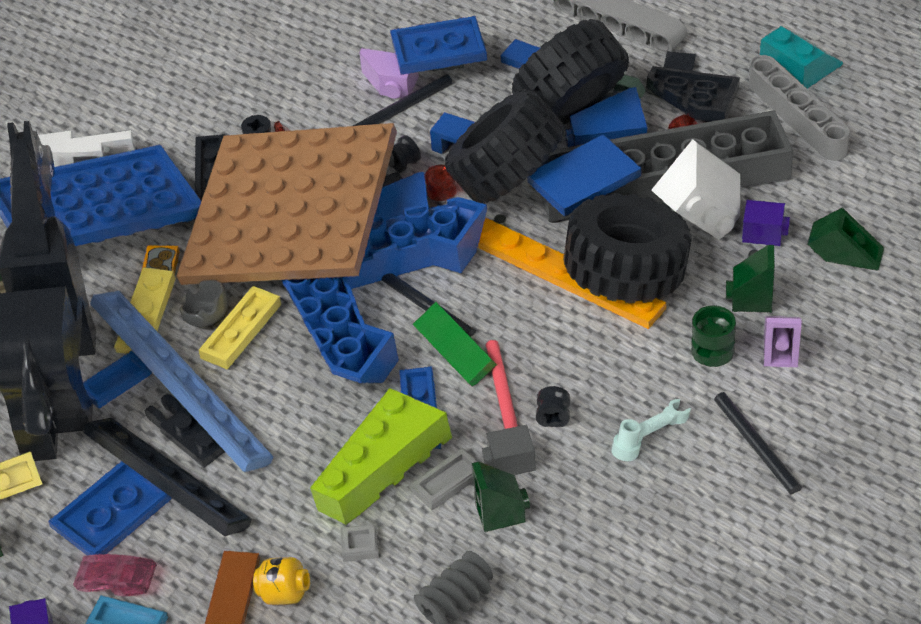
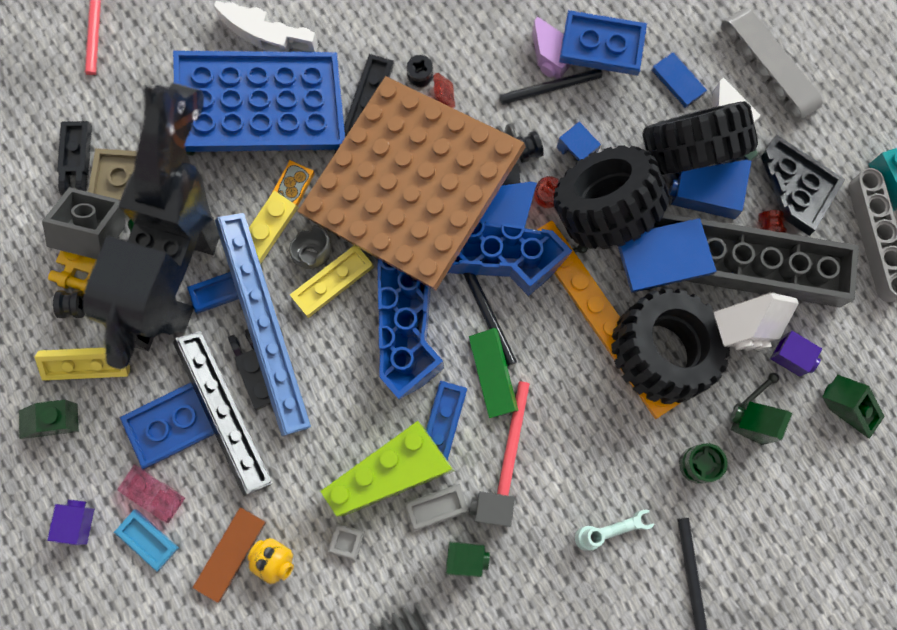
camera: 15 degrees right, 30 degrees up
(553, 407) = (545, 476): black wheel -> none
(680, 61) = (801, 137): black tile -> none
(781, 341) = (759, 489): lavender slope -> none

